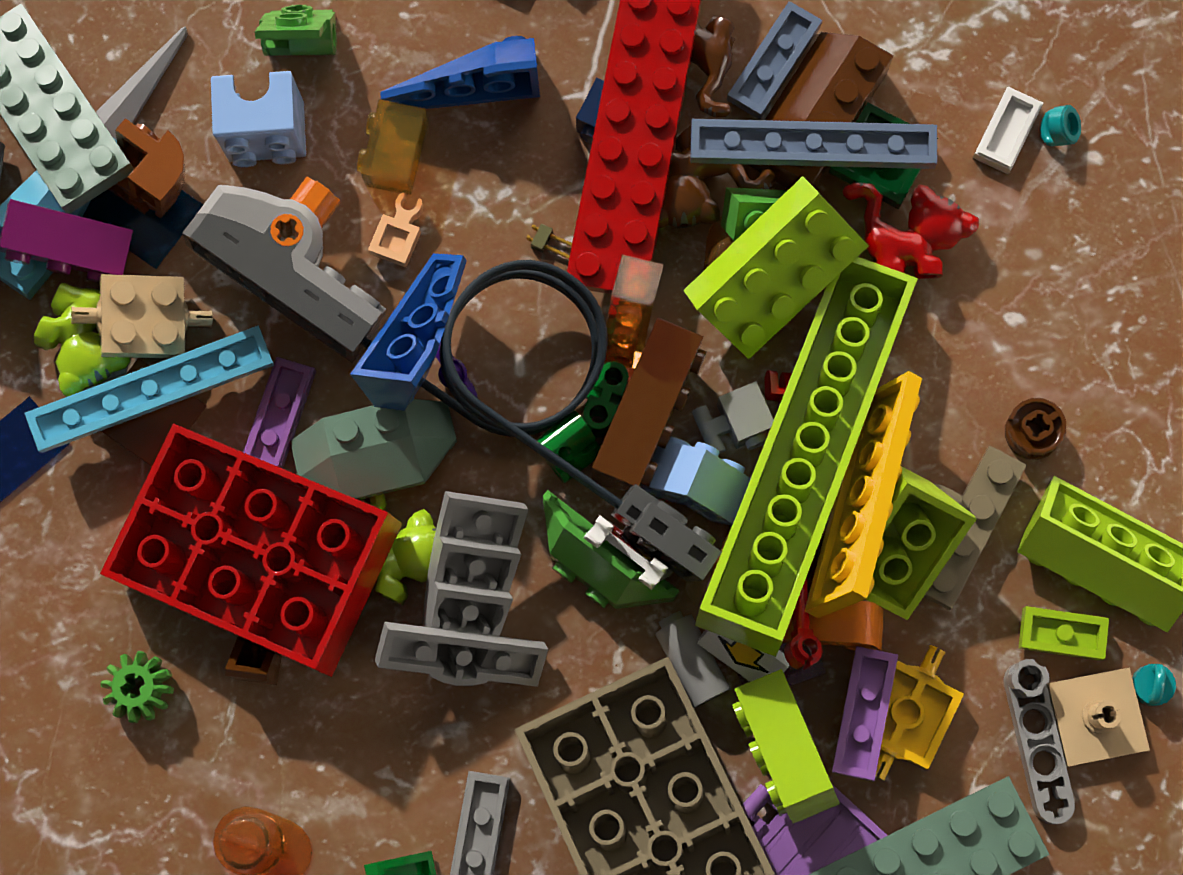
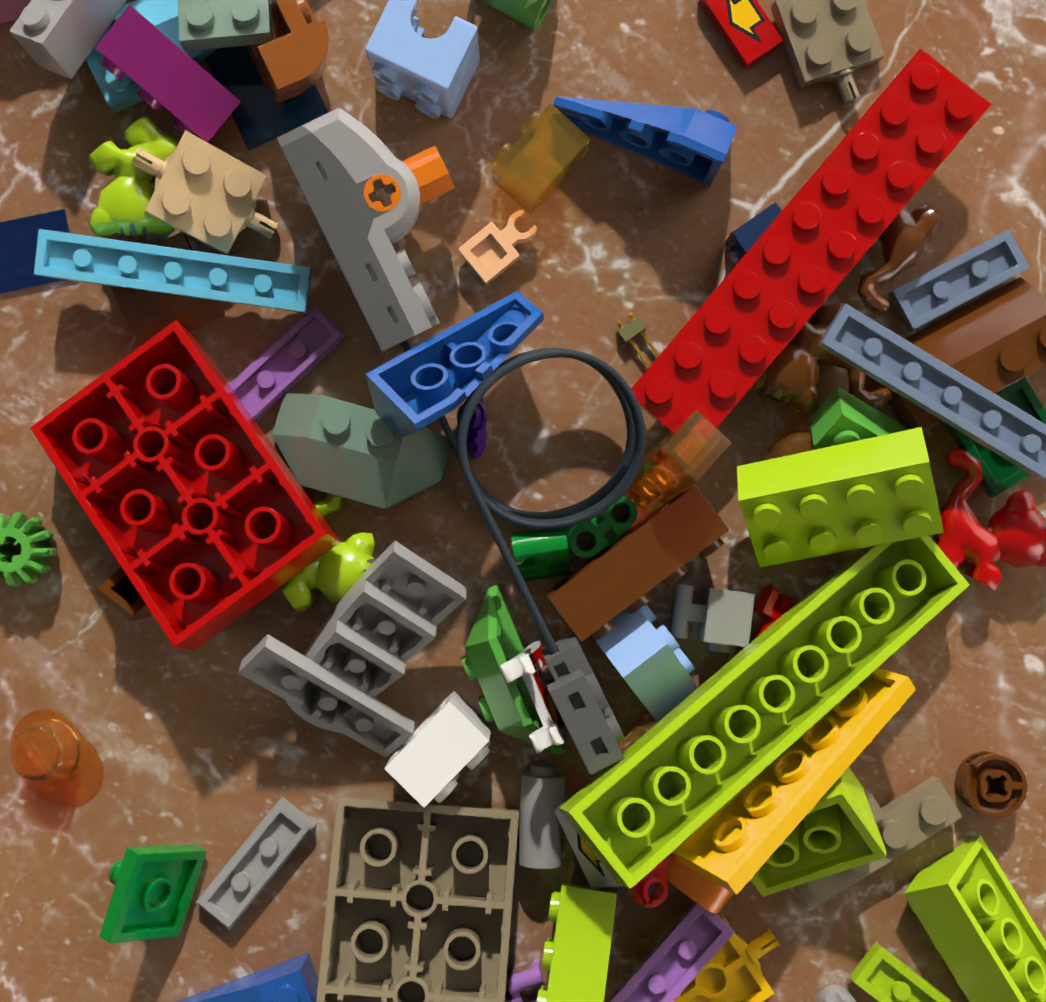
camera: 25 degrees right, 10 degrees up
(576, 644) = (439, 750): none -> white brick

